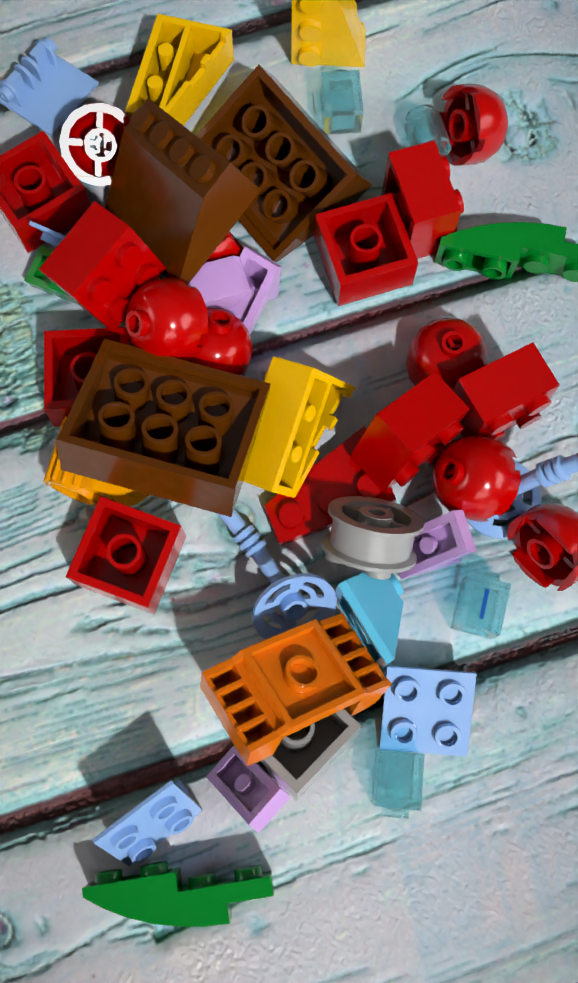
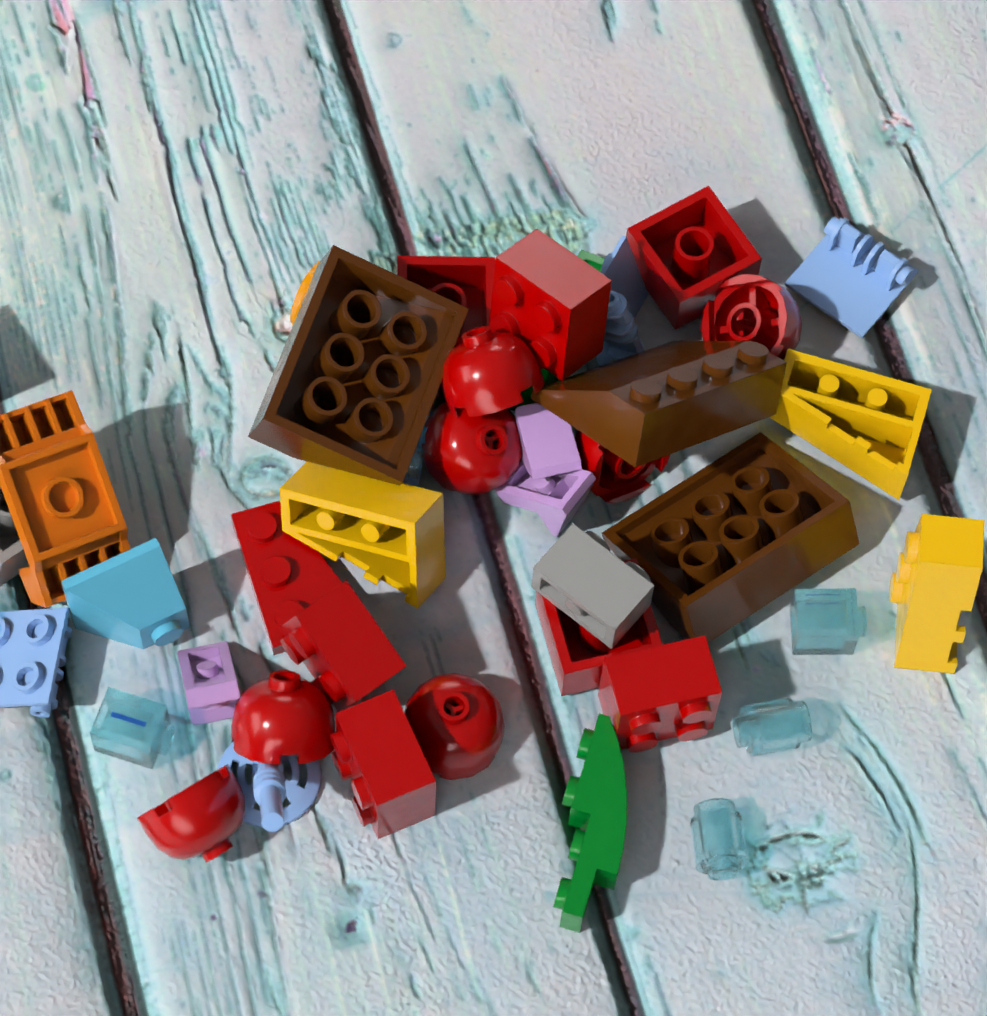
camera: 90 degrees right, 10 degrees down
(127, 555) = (225, 347): red brick -> none
(288, 593) = (162, 517): light blue dish -> none
(351, 234) = (593, 585): none -> light grey brick
(372, 535) = (220, 596): light grey wheel -> none
(474, 123) = (781, 783): red cylinder -> none
(518, 170) = (718, 839): none -> clear light blue brick

